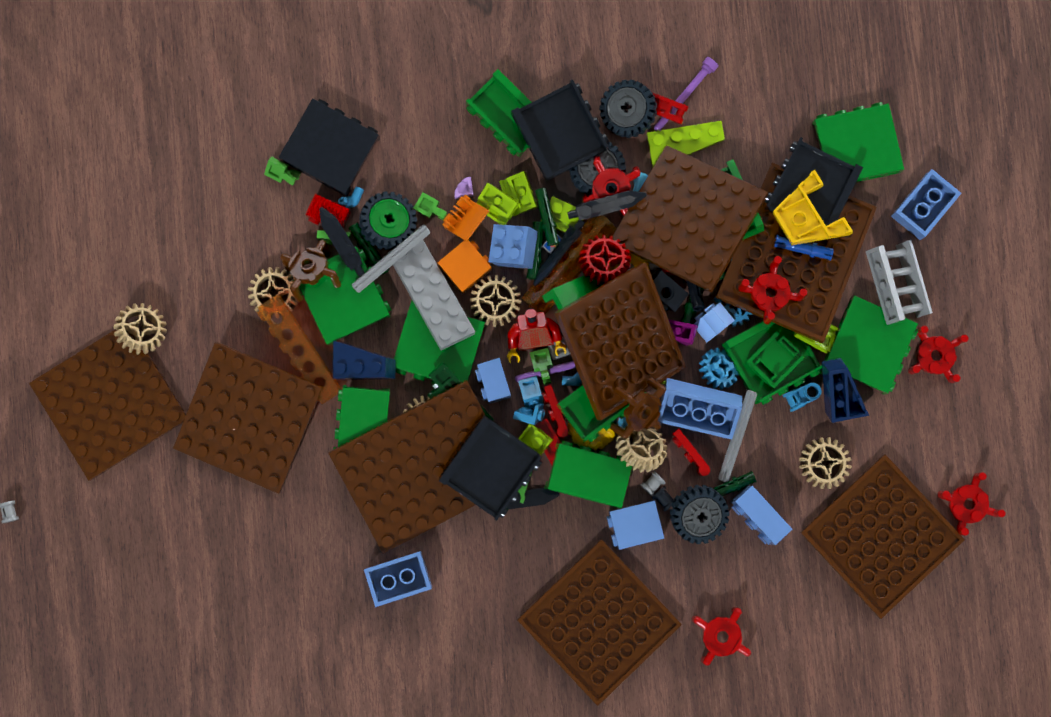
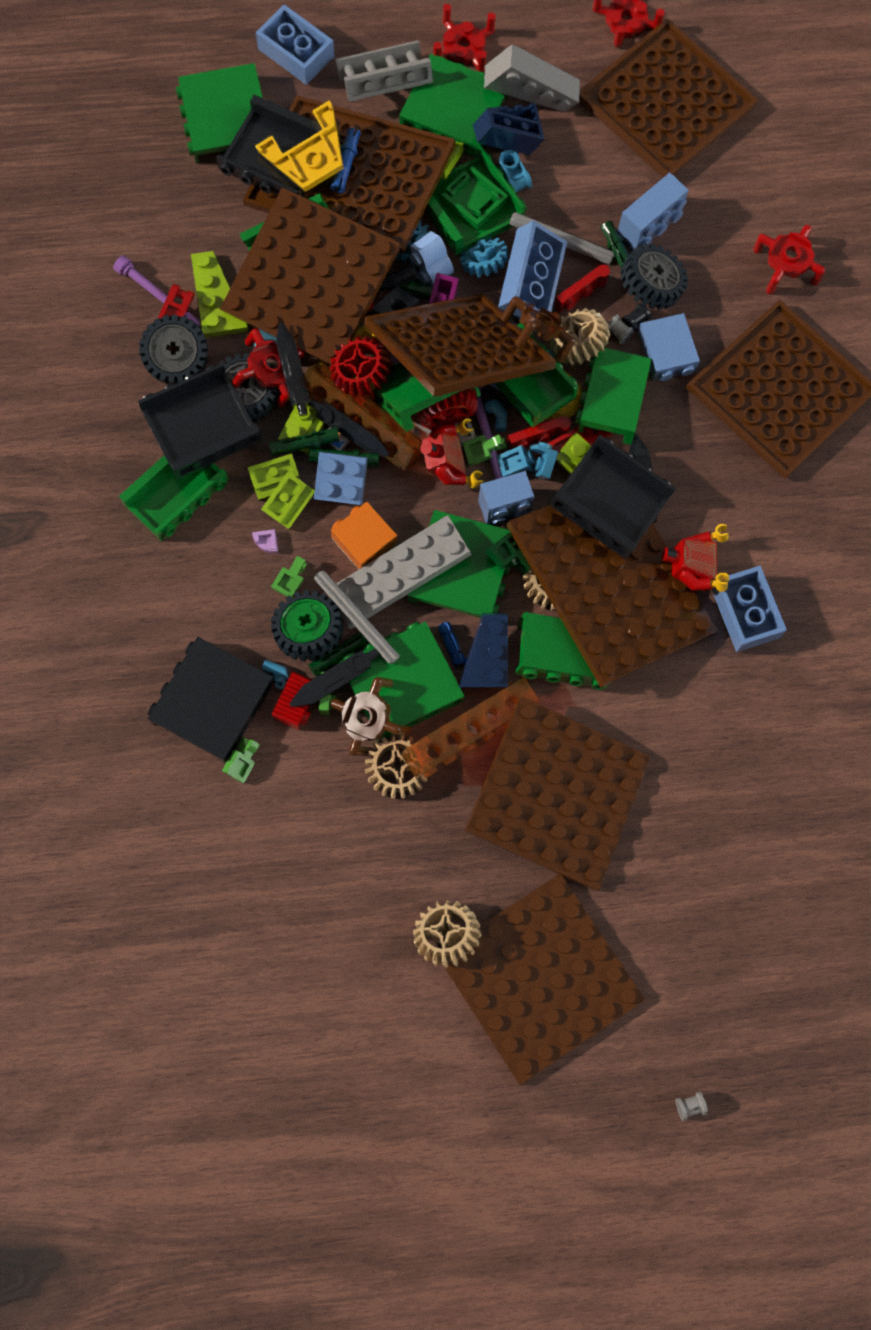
camera: 90 degrees left, 10 degrees down
(374, 337) = (452, 644): none -> blue axle
(438, 536) = (696, 561): none -> red torso
(465, 219) = (305, 533): orange hinge -> none
(504, 300) = (396, 501): tan gear -> none
(775, 282) = (395, 181): red plate -> none
(808, 465) = (582, 161): tan gear -> none
(888, 412) = (531, 79): none -> light grey wedge

